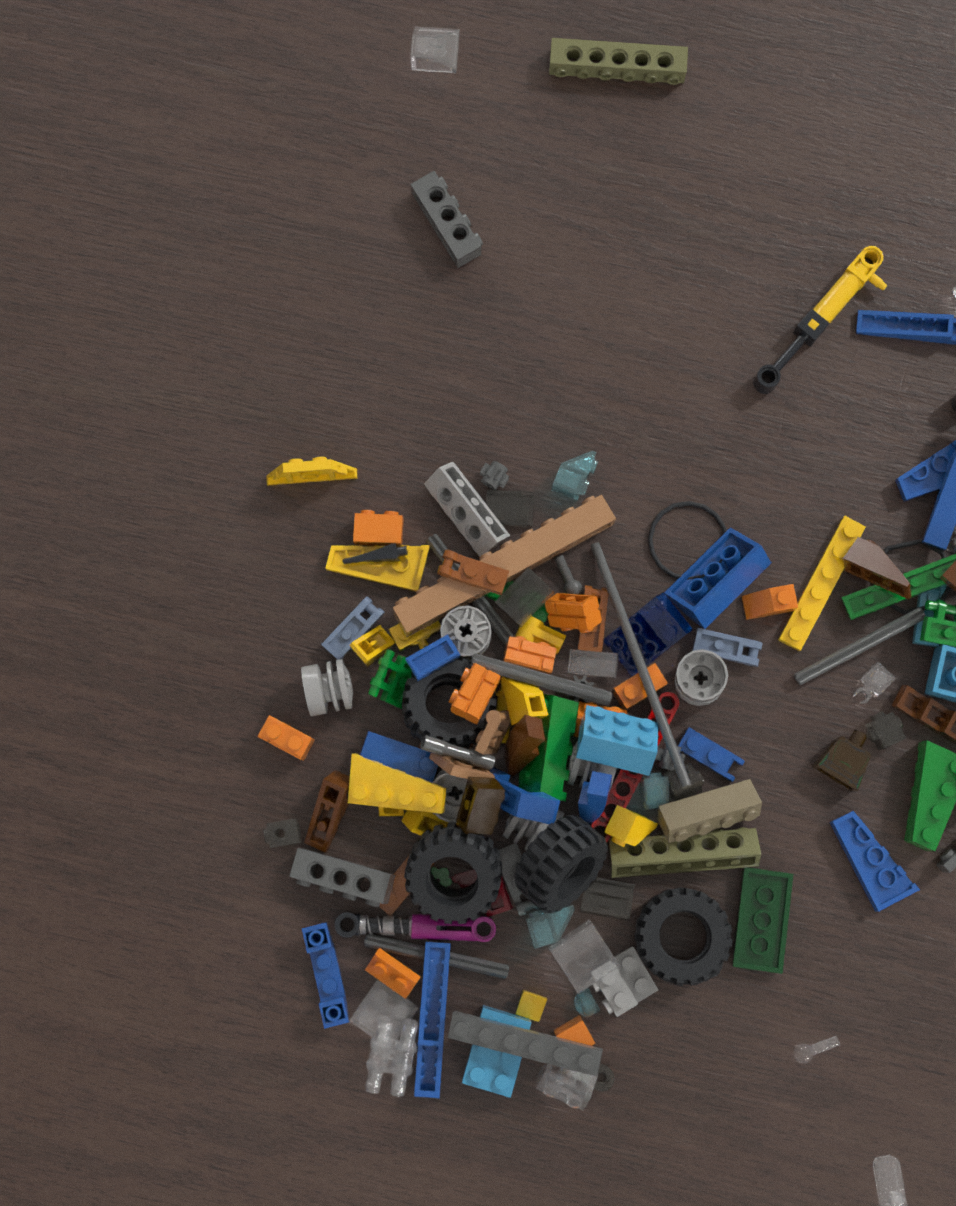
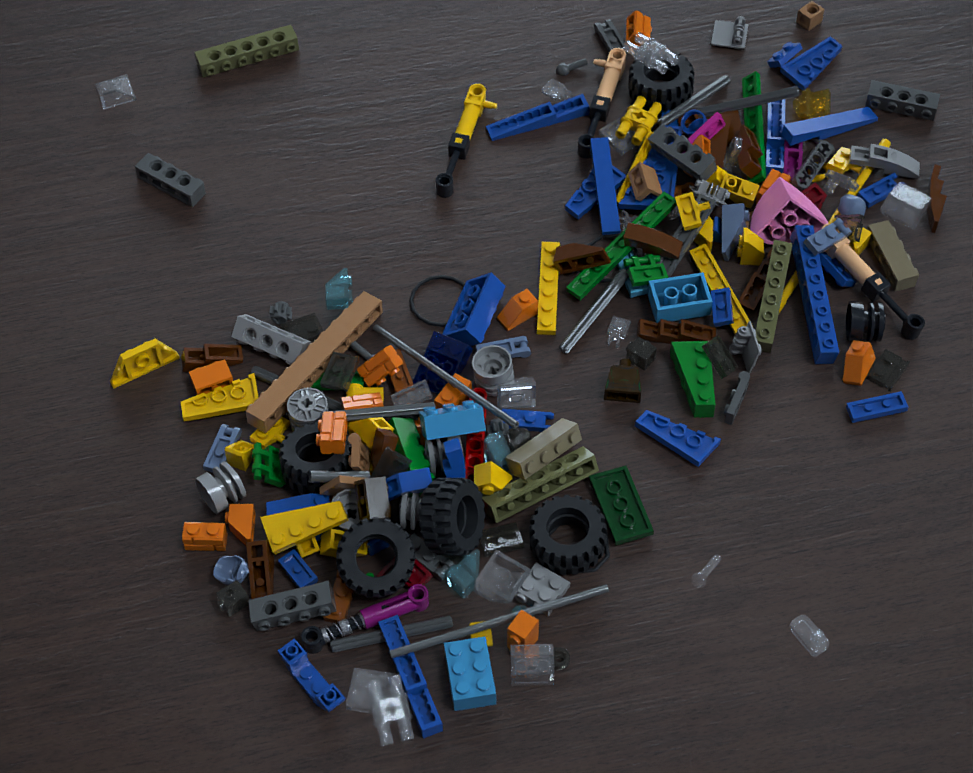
camera: 25 degrees left, 25 degrees down
(295, 798) = (230, 569): none -> sand blue hair
(334, 738) = (241, 521): none -> orange slope
(369, 829) = (297, 569): none -> blue plate
(387, 553) = (223, 388): black piece -> none
(391, 498) = (200, 357): none -> reddish brown slope
(392, 973) = (363, 653): orange bracket -> none
(432, 657) = (290, 427): blue tile -> none
(473, 572) = (294, 366): dark orange plate -> none
(520, 769) = (391, 464): none -> clear smoke plate
(525, 1043) = (486, 643): dark grey plate -> none
(557, 1009) = (497, 621): none -> dark grey piece
(718, 718) = (517, 393): none -> clear slope

